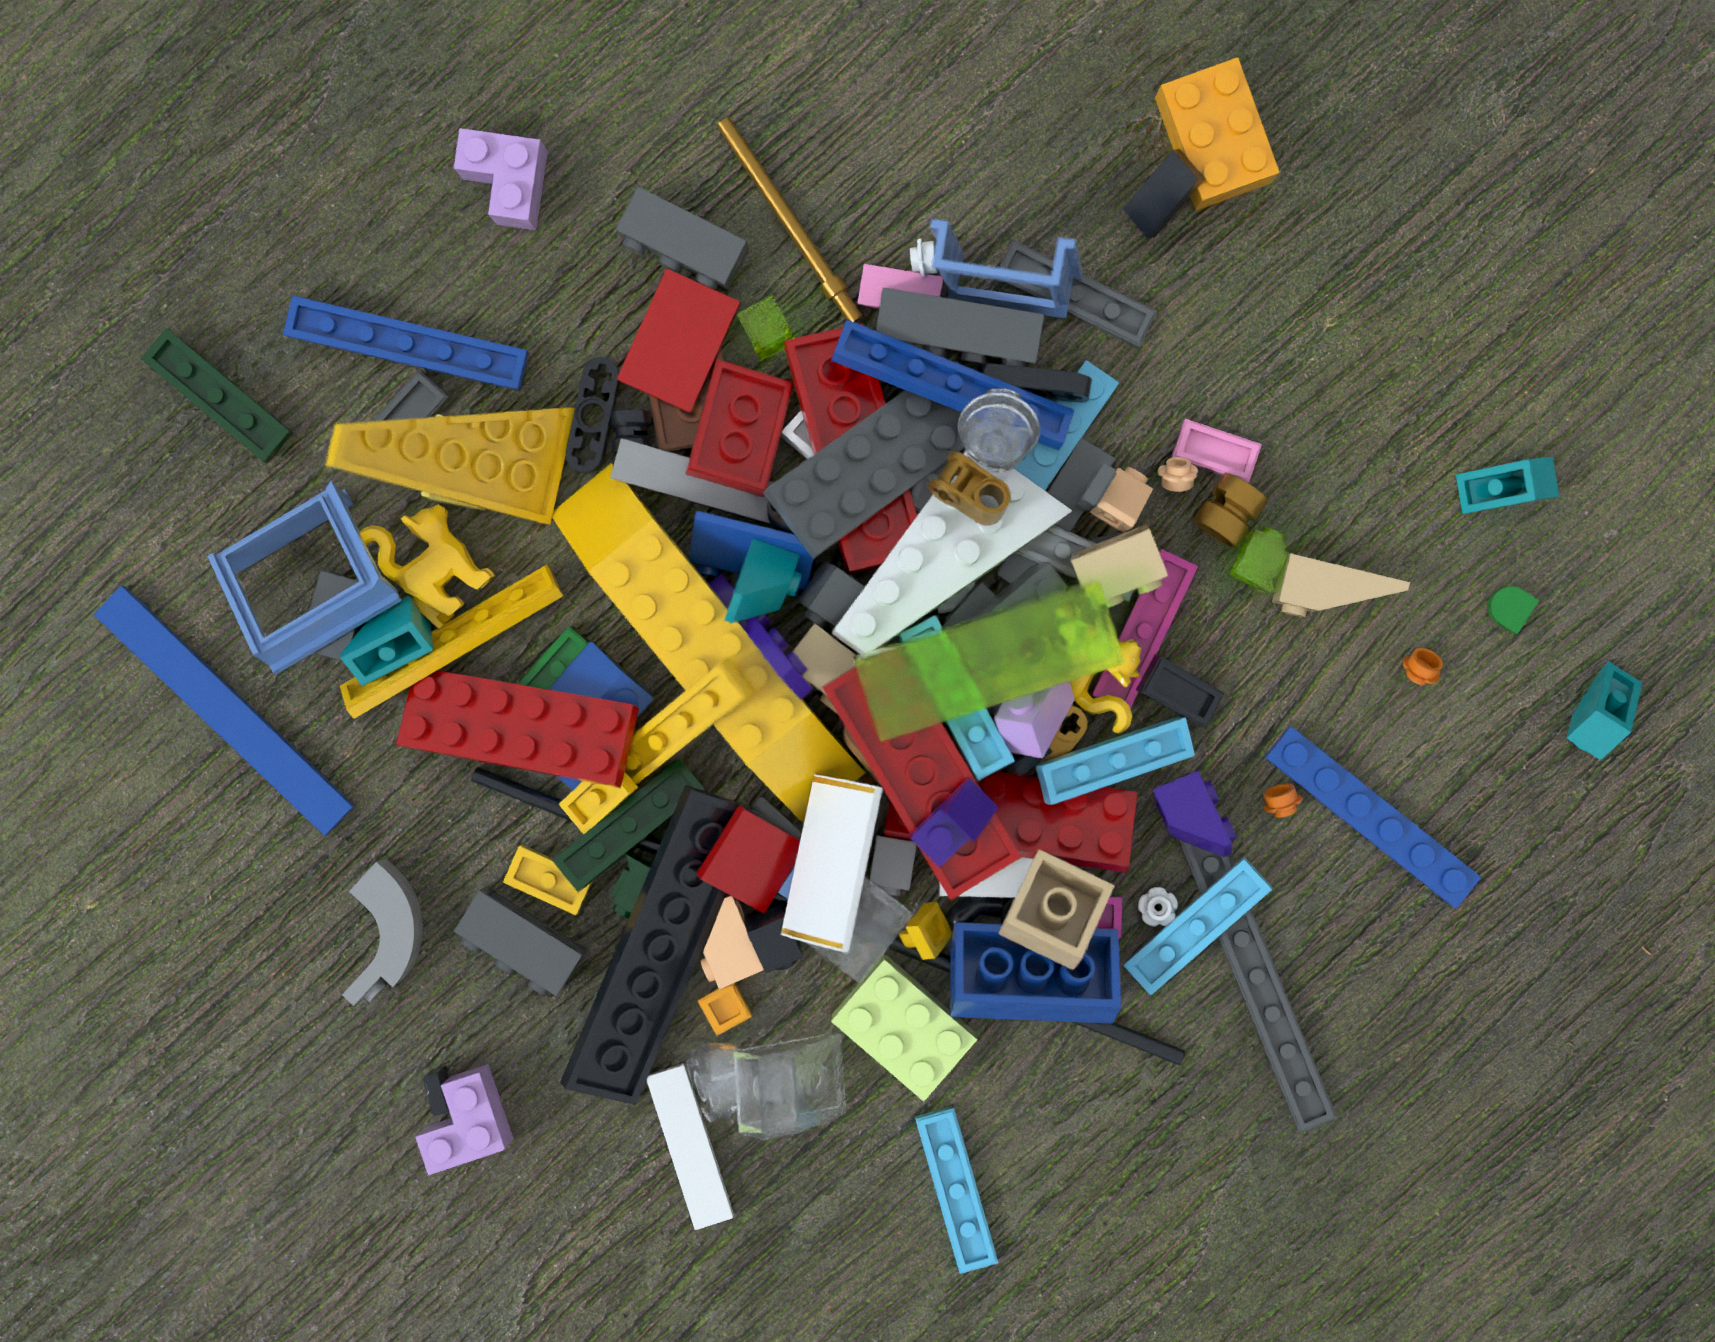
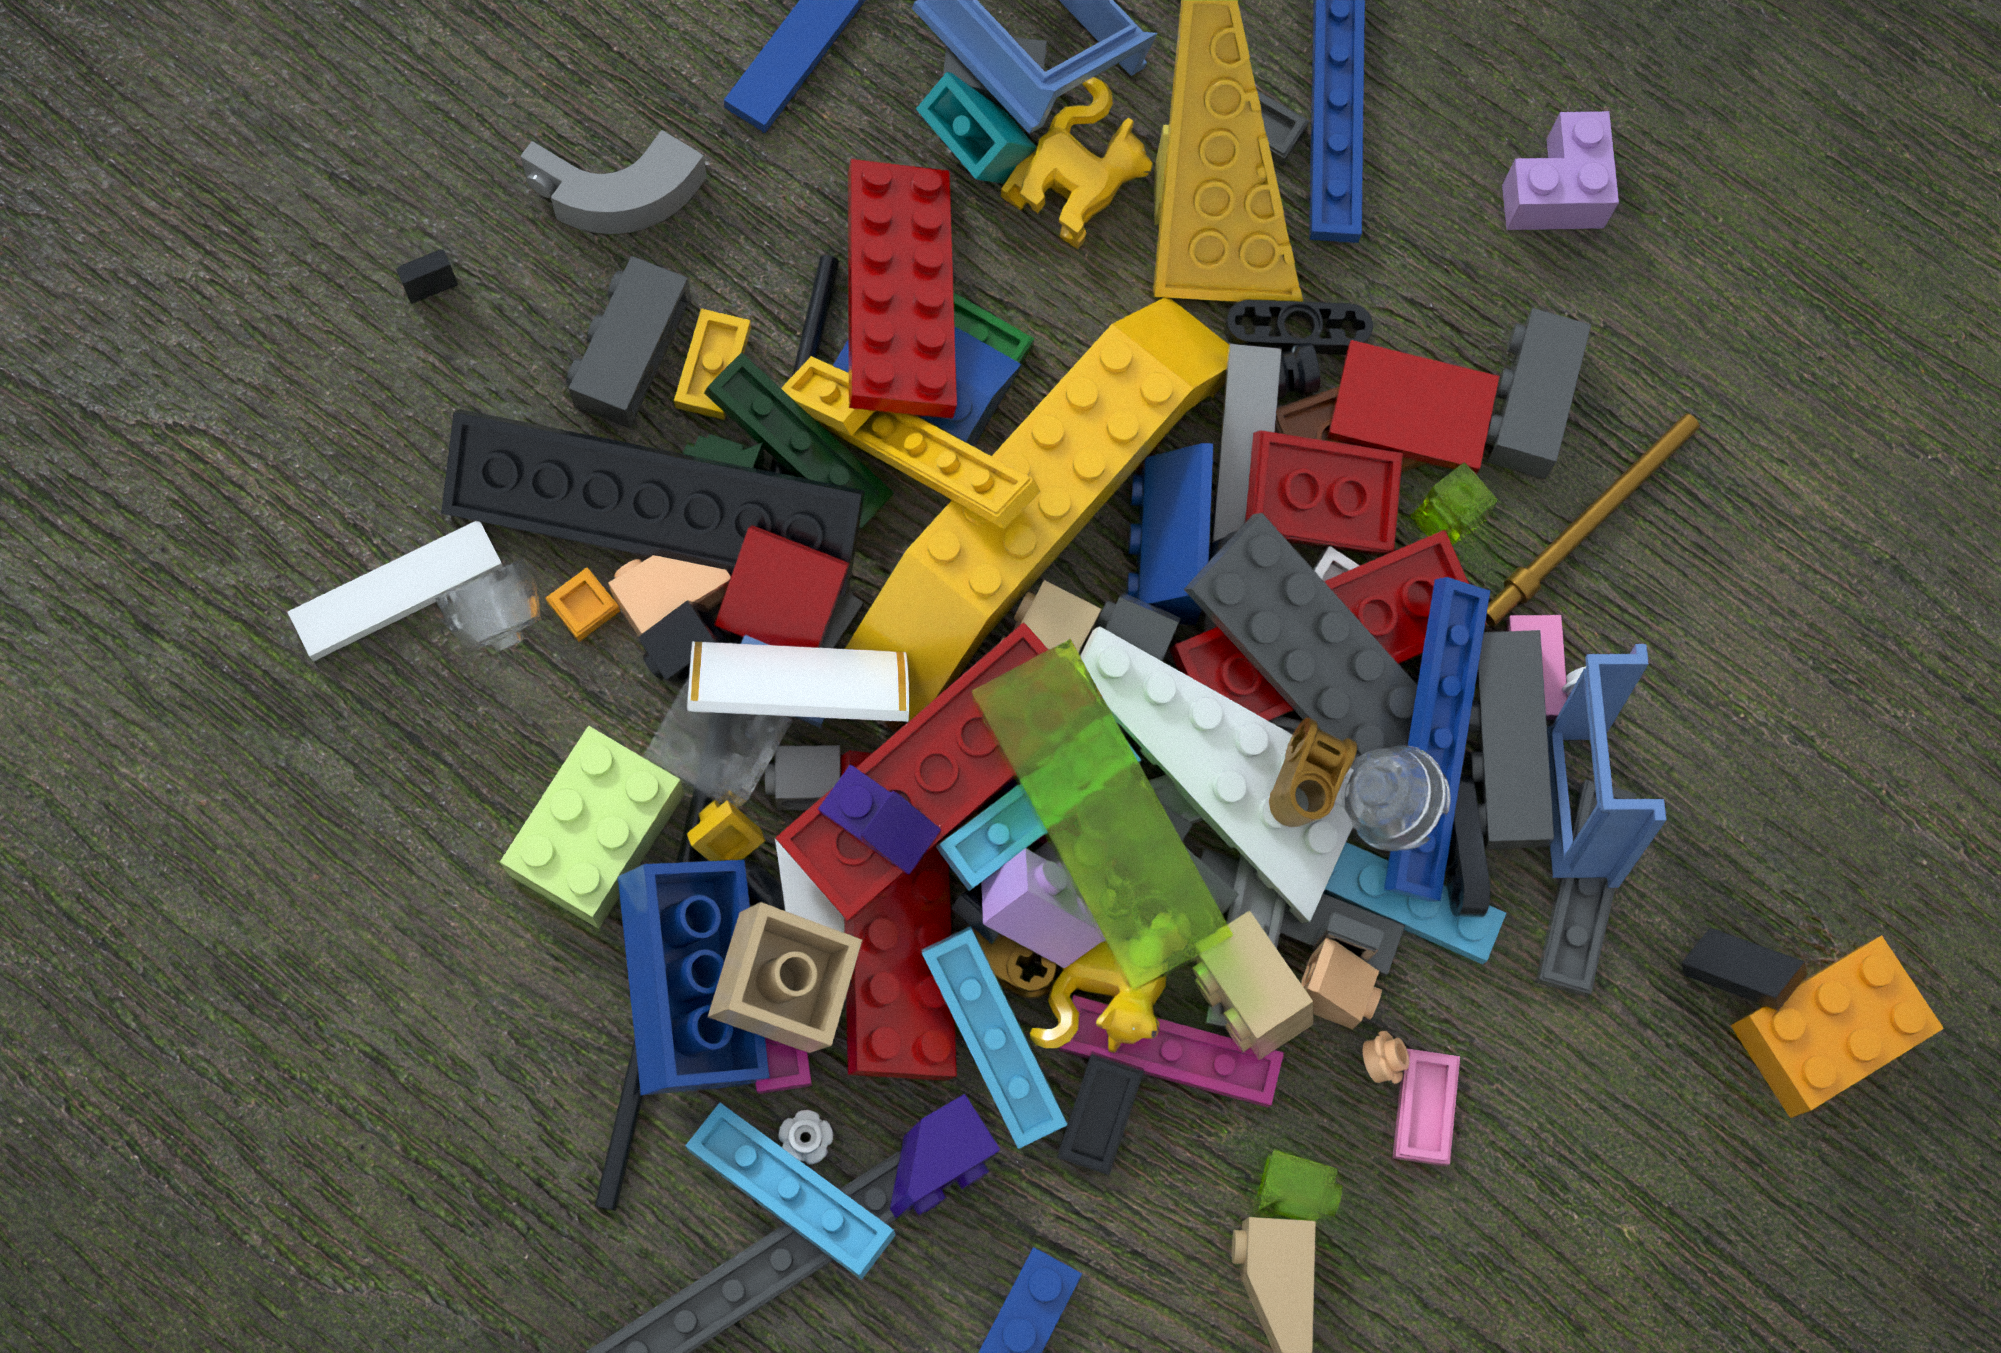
camera: 75 degrees right, 15 degrees down
(458, 638) = (994, 211): yellow tile -> none
(475, 1126) = (395, 323): lavender brick -> none
(763, 581) = (1140, 534): teal slope -> none
(769, 643) = (1071, 548): dark purple plate -> none
(789, 1086) = (497, 691): clear slope -> none
(956, 1189) = (382, 939): medium azure tile -> none
(1230, 510) = (1354, 1134): pearl gold wheel -> none
(1281, 800) = (979, 1279): orange plate -> none

